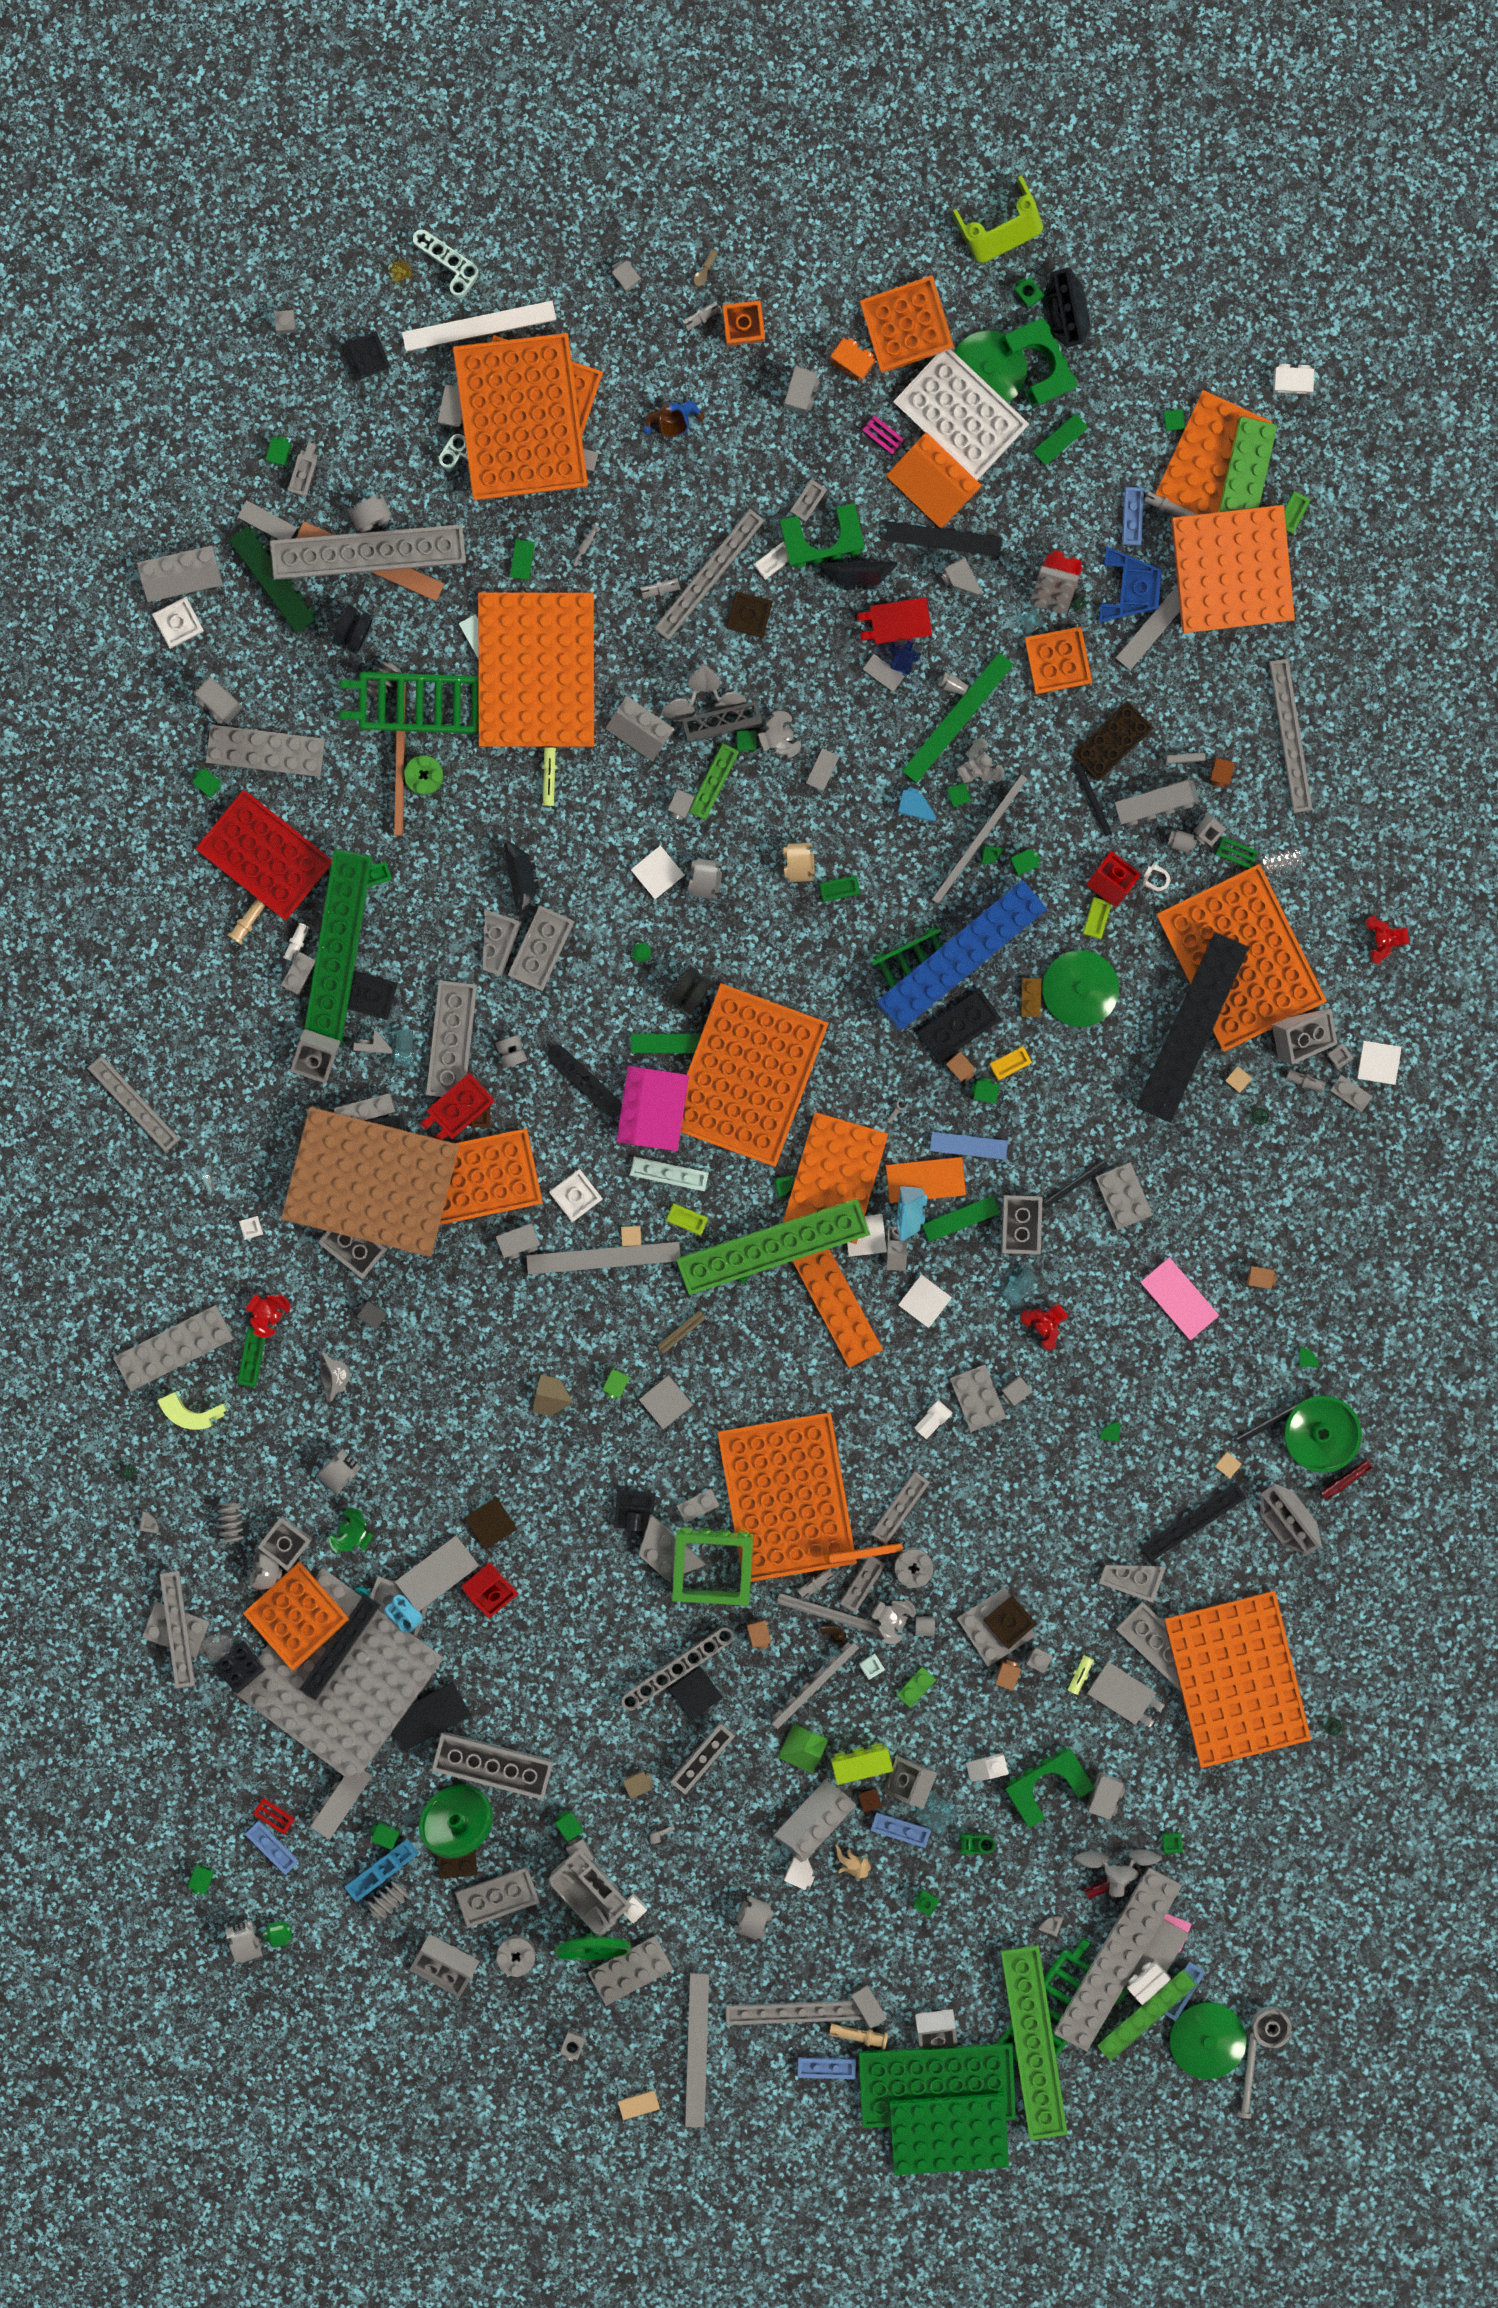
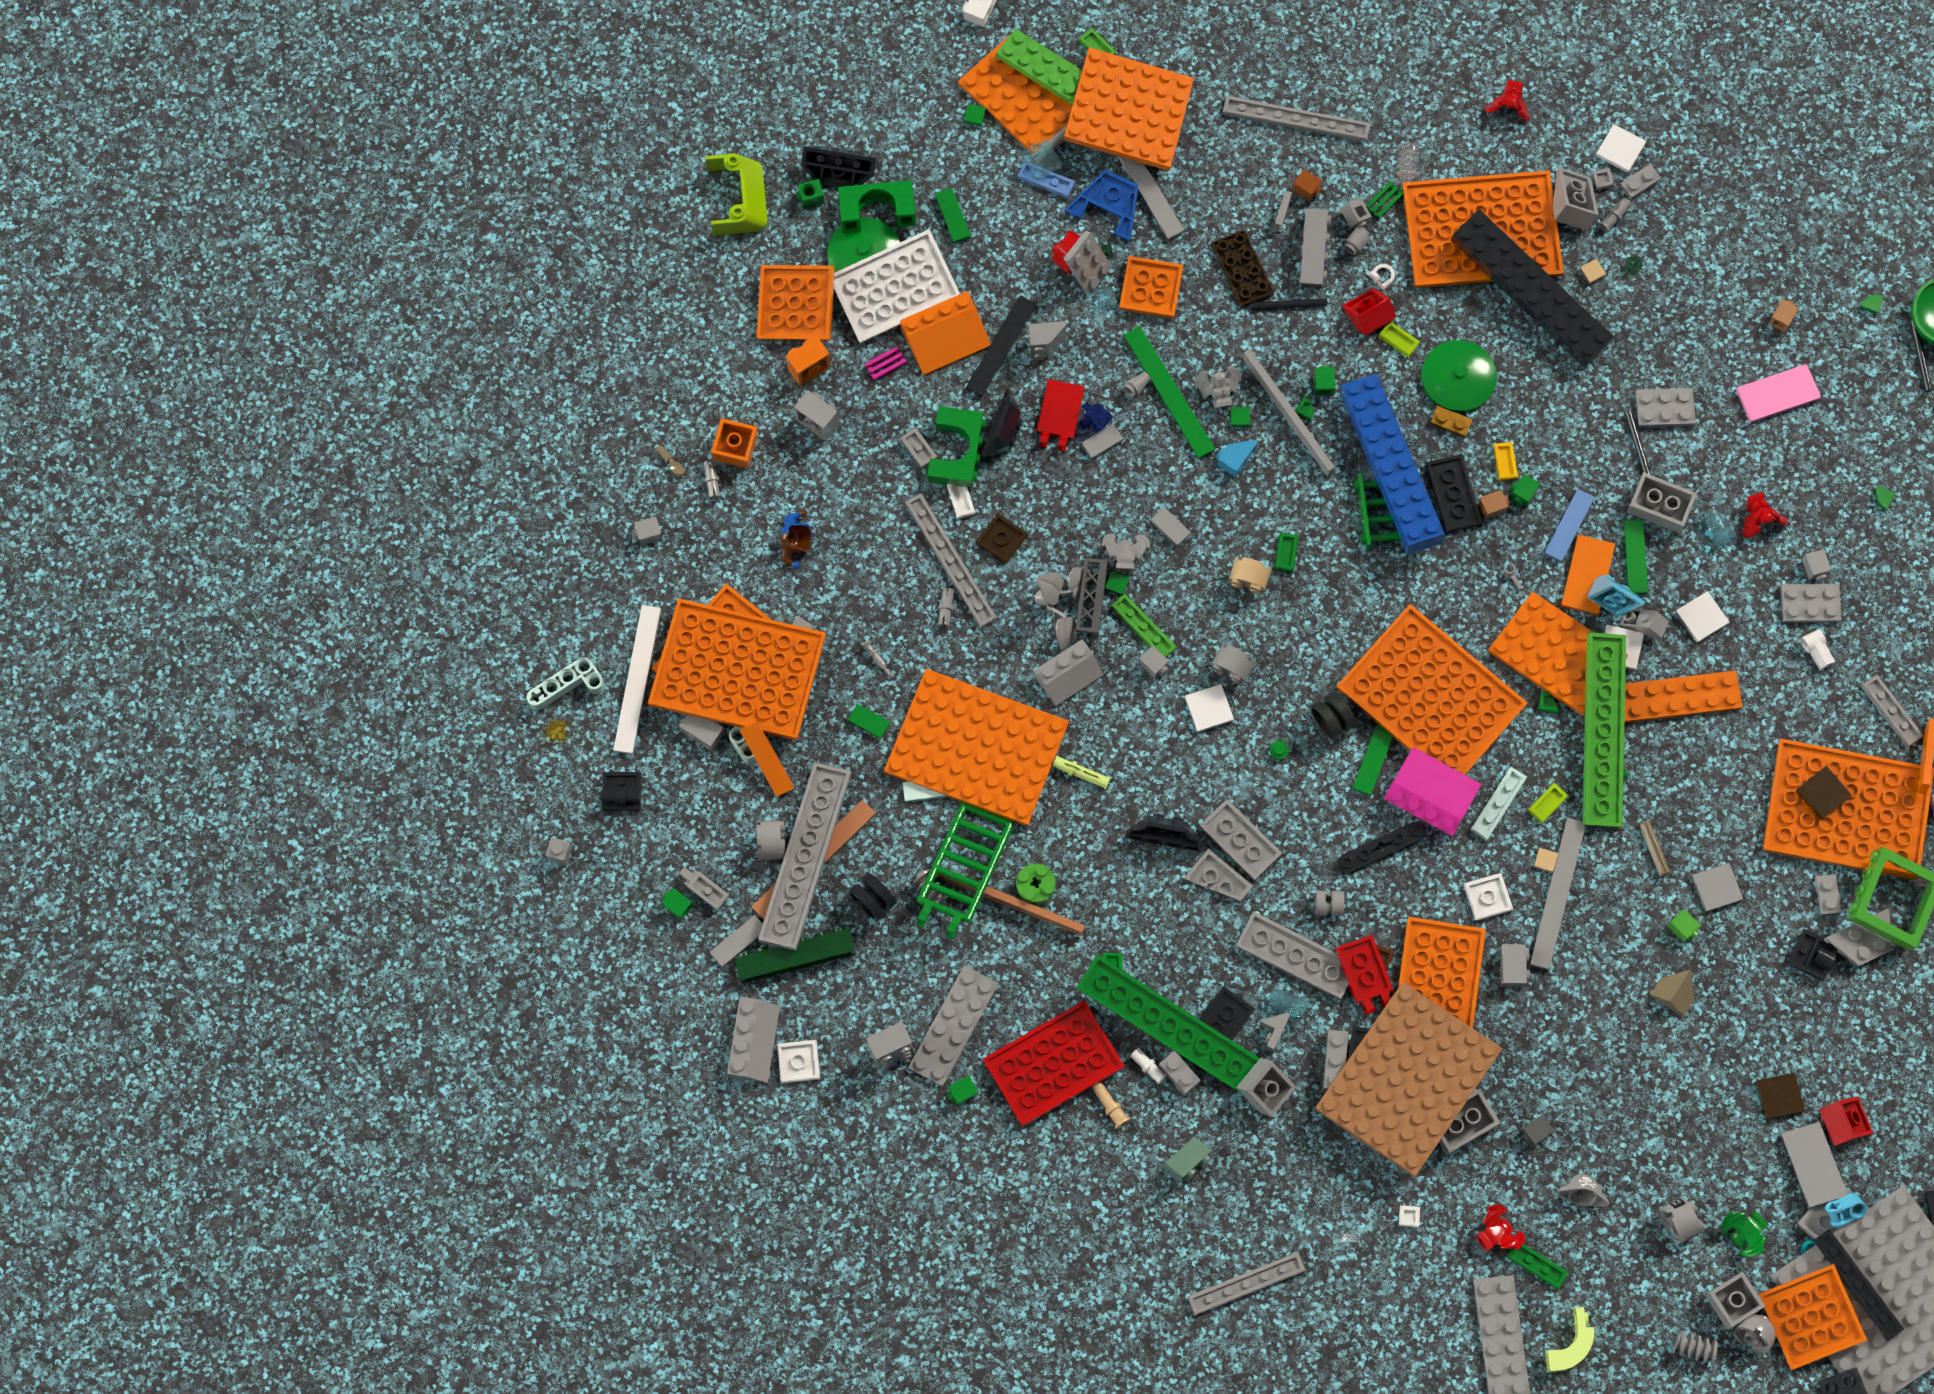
camera: 70 degrees left, 15 degrees down
(223, 1010) = (1188, 1159): none -> sand green slope
(445, 479) = (766, 758): none -> orange tile
(791, 1469) = (1823, 792): none -> dark brown tile
(1148, 504) = (1041, 159): none -> clear light blue piece

